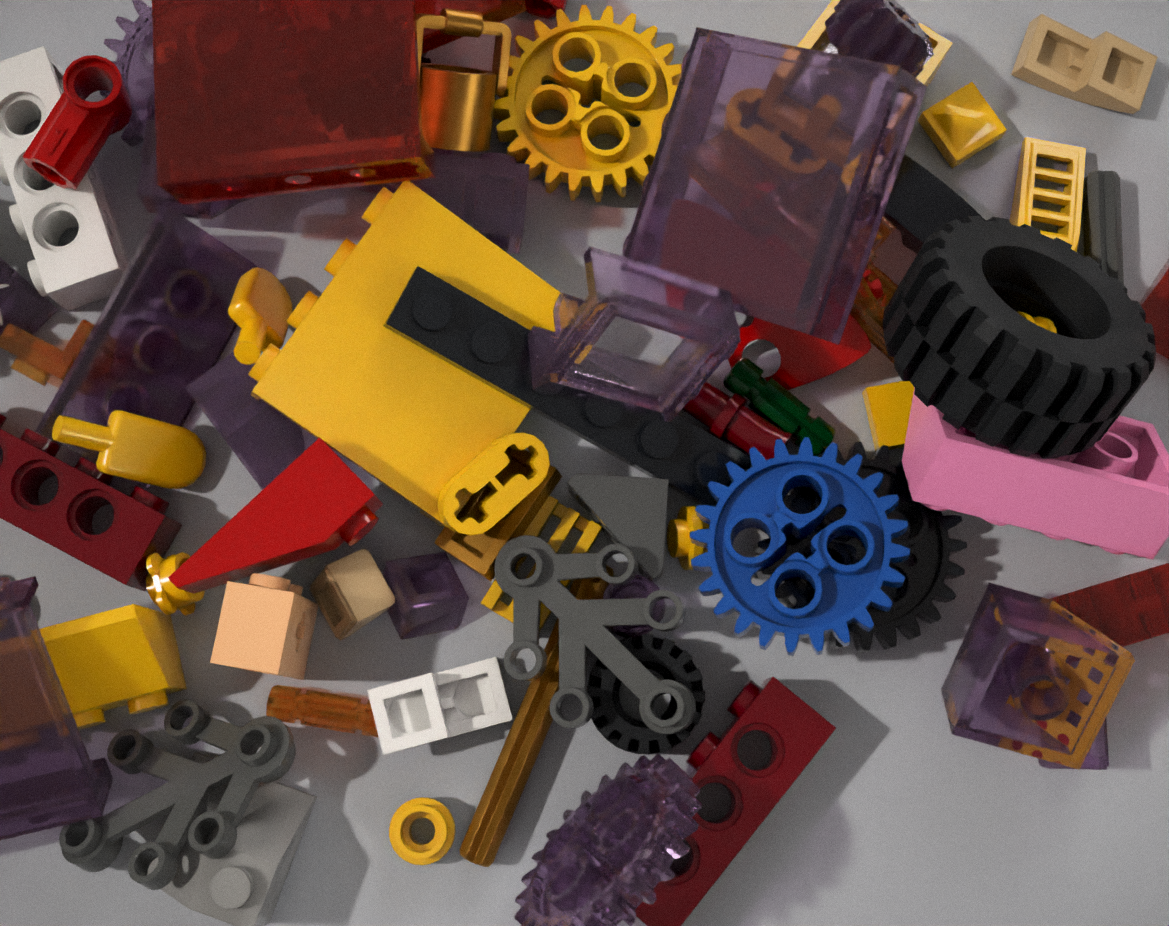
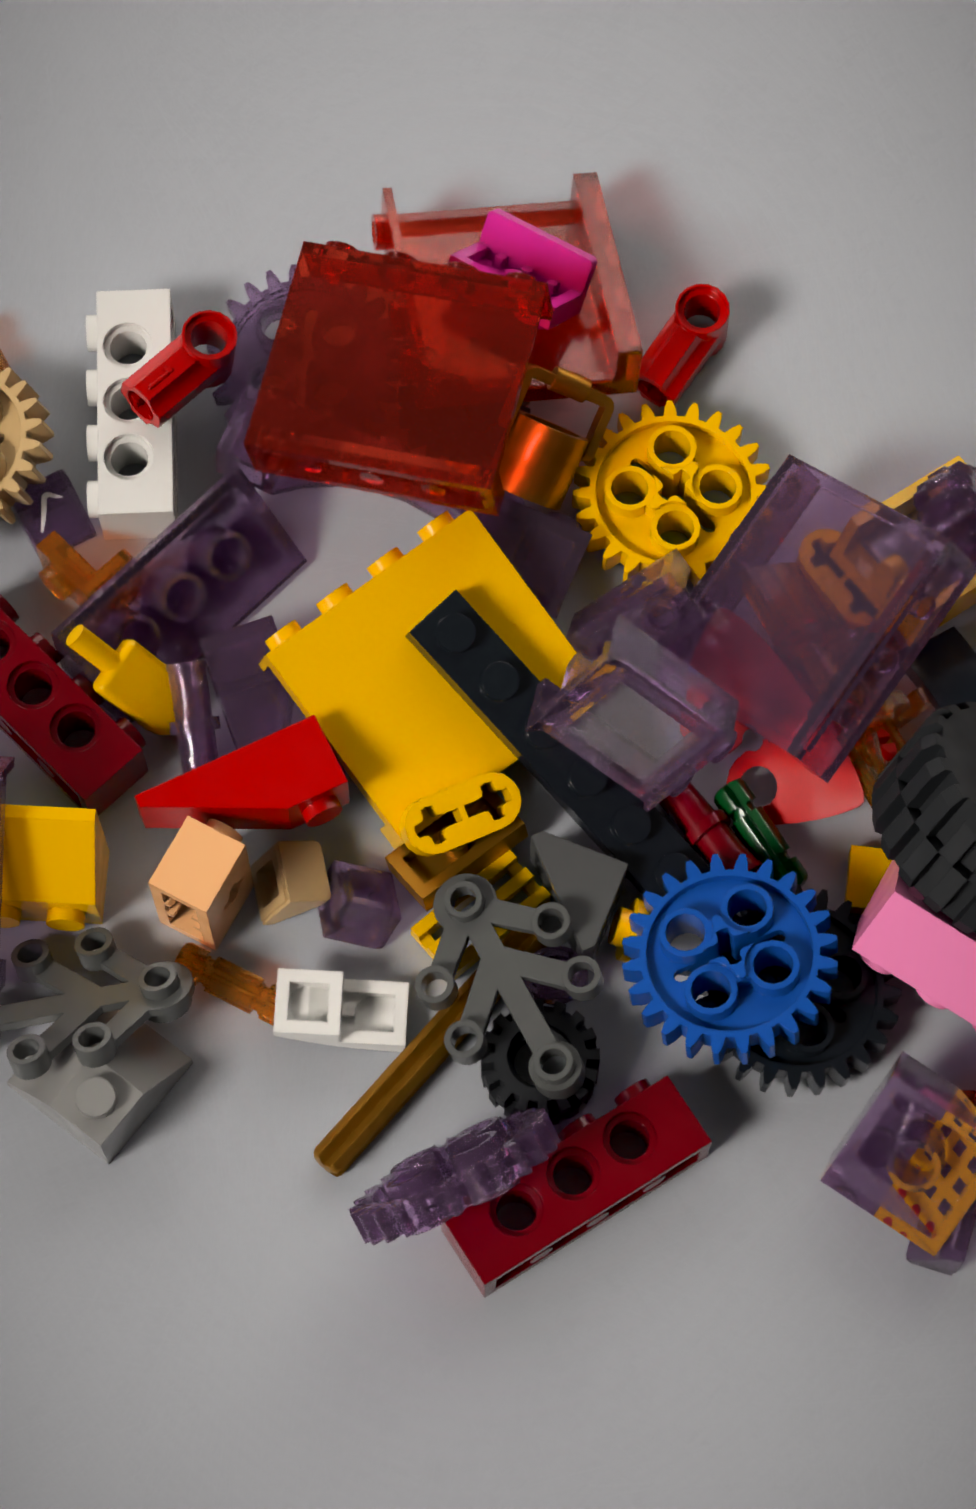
camera: 15 degrees right, 10 degrees down
(163, 591) = (122, 819): yellow plate -> none
(206, 465) = (193, 714): none -> clear purple pin
(261, 311) = (292, 592): yellow piece -> none
(403, 840) = (284, 1102): yellow plate -> none
(603, 215) = (650, 600): none -> clear purple bracket

